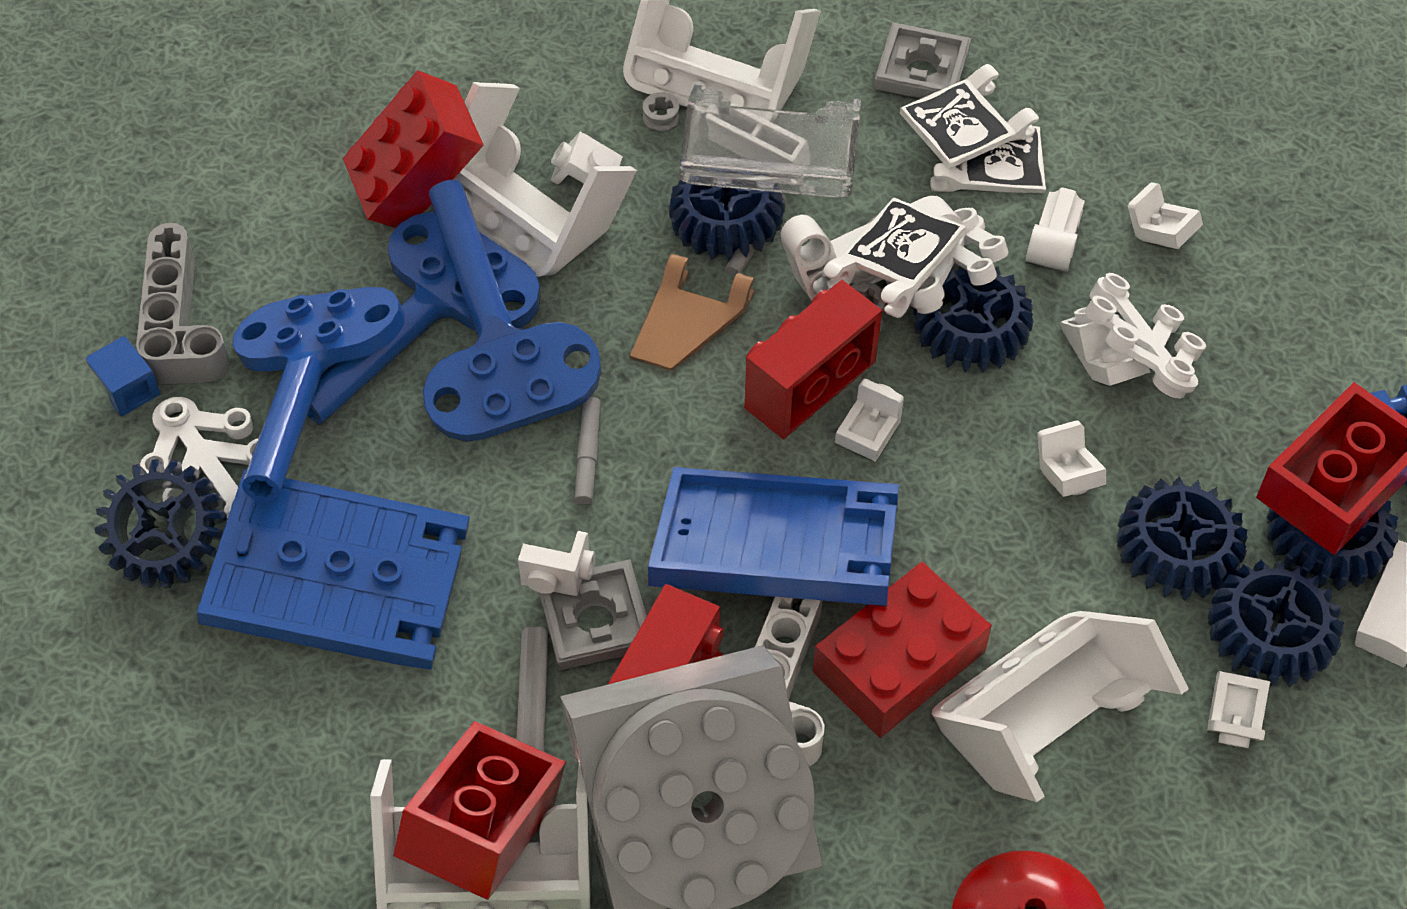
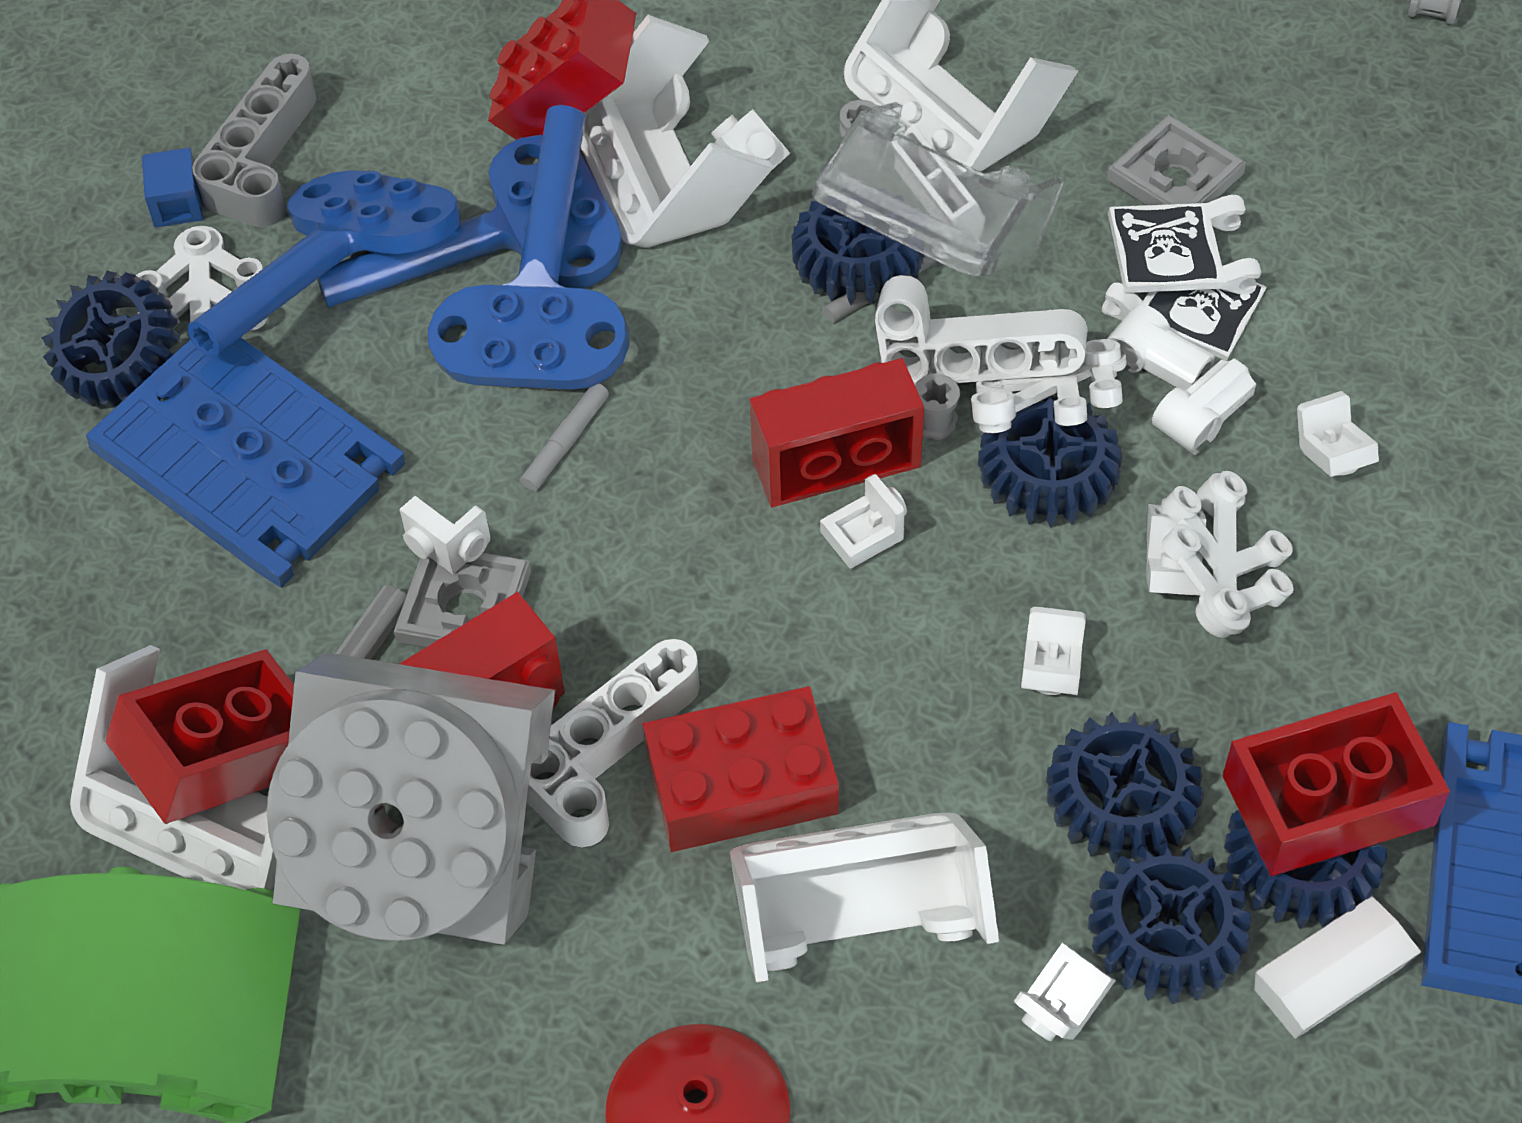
camera: 30 degrees right, 0 degrees up
(685, 321) = (749, 345): medium nougat flag -> none
(776, 536) = (682, 597): door -> none
(900, 247) = (986, 355): white flag -> none
(999, 202) = (1152, 346): none -> white piece

